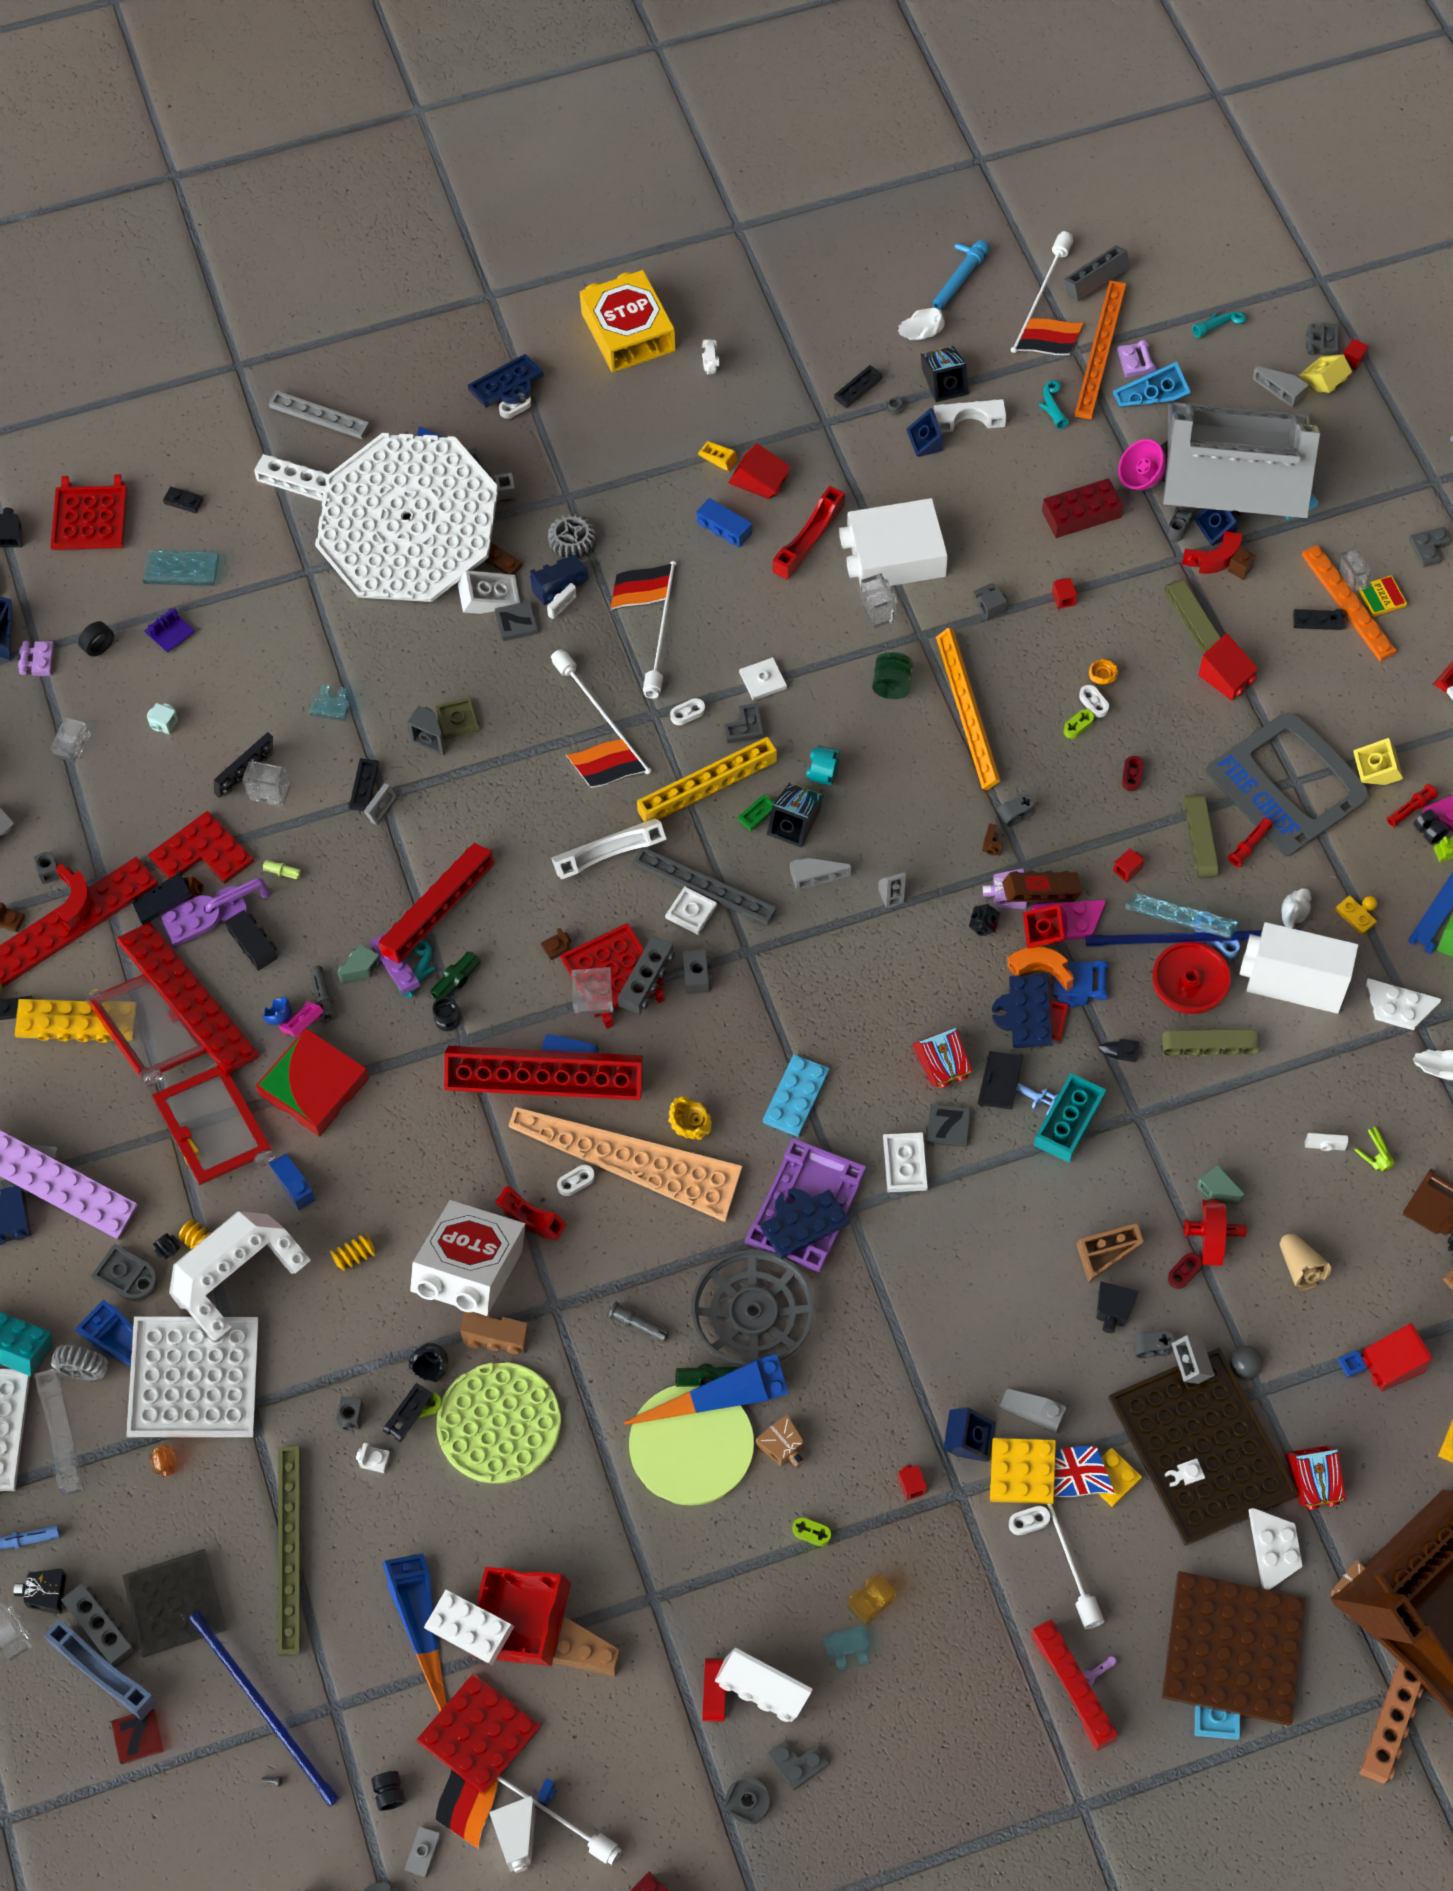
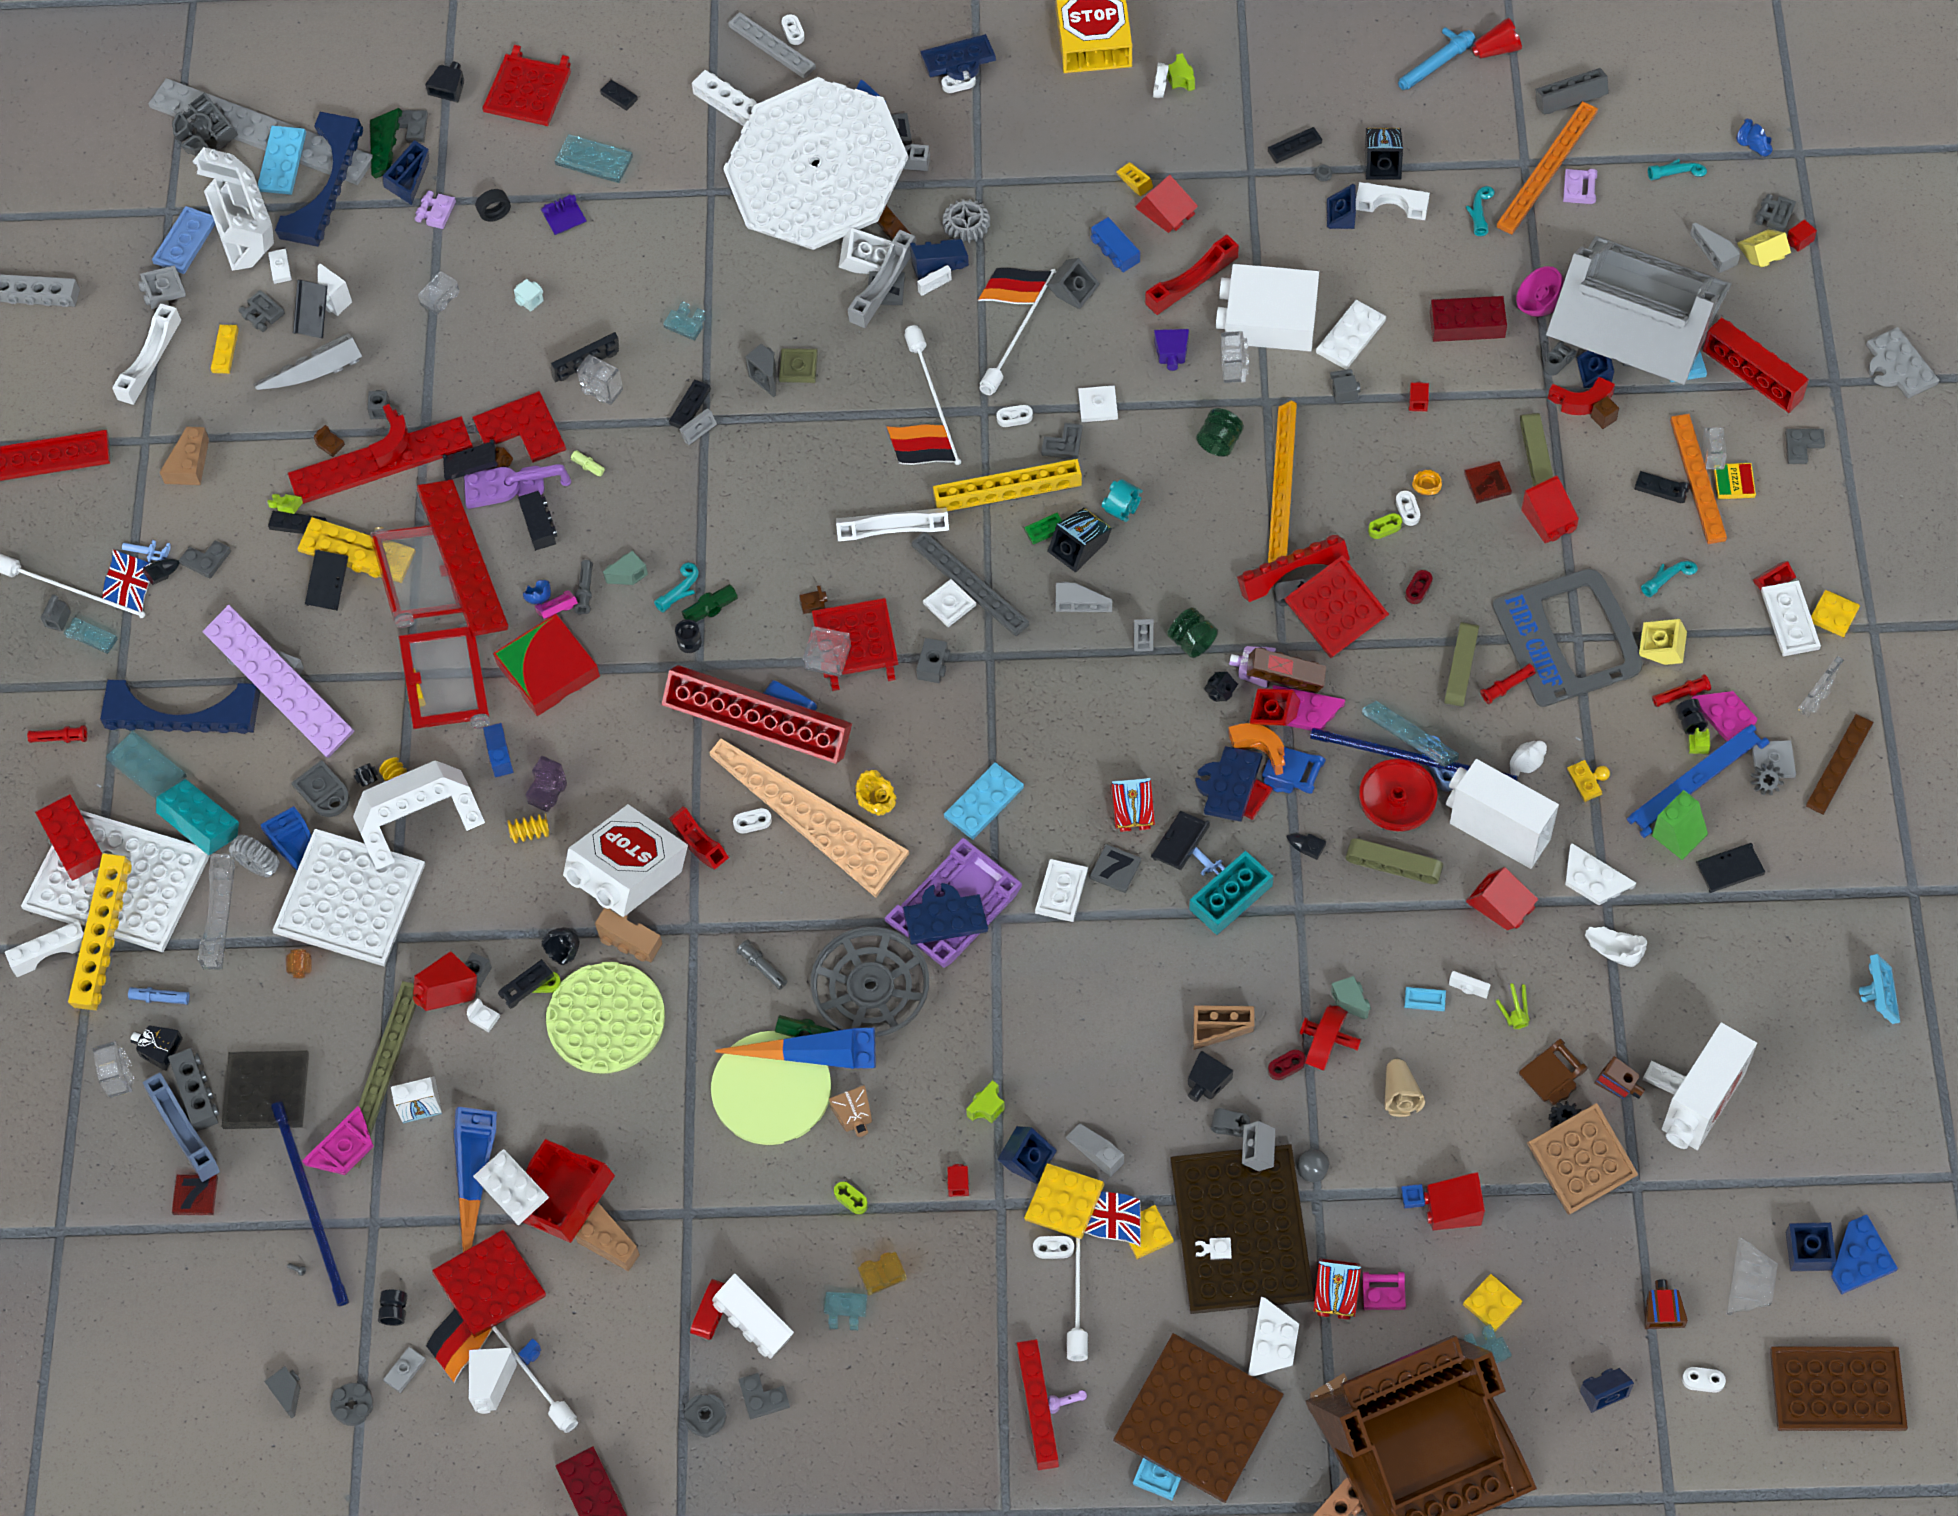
camera: 20 degrees right, 0 degrees up
(56, 1058) = (326, 573): none -> black door
(278, 1637) = (343, 1146): none -> dark pink wing
(326, 1437) = (444, 983): none -> red slope
(336, 397) = (794, 32): none -> white plate
(337, 1564) = (416, 1099): none -> white slope
(357, 1200) = (547, 785): none -> clear purple brick
(399, 972) = (658, 577): medium lavender plate -> none
(436, 903) = (715, 531): red brick -> none
(508, 632) = (869, 300): none -> light grey arch
(655, 949) = (885, 641): dark grey brick -> none
(697, 569) = (1073, 283): none -> dark grey slope
(727, 345) = (1181, 74): none -> lime brick
(813, 606) = (1171, 346): none -> dark purple torso
(911, 1396) = (986, 1104): none -> lime brick
(922, 324) = (1379, 100): white hair -> none
(941, 876) = (1192, 632): none -> clear green wheel
(977, 551) = (1351, 334): none -> white plate
(983, 807) = (1259, 581): none -> red arch
(990, 843) = (1255, 614): reddish brown bracket -> none
(1012, 242) = (1498, 41): none -> red cone
(1049, 335) = (1502, 140): flag -> none
(1065, 813) = (1336, 606): none -> red plate
(1128, 865) = (1380, 672): red brick -> none
(1157, 657) = (1487, 482): none -> clear red tile
(1160, 386) = (1591, 218): dark azure wedge -> none
(1277, 275) = (1754, 137): none -> blue hair
(1288, 1167) = (1425, 999): none -> medium azure tile
(1325, 1049) = (1503, 899): none -> slope
(1351, 703) = (1662, 576): none -> teal plant
(1364, 483) = (1755, 365): none -> red brick
(1364, 1471) = (1383, 1297): none -> dark pink plate

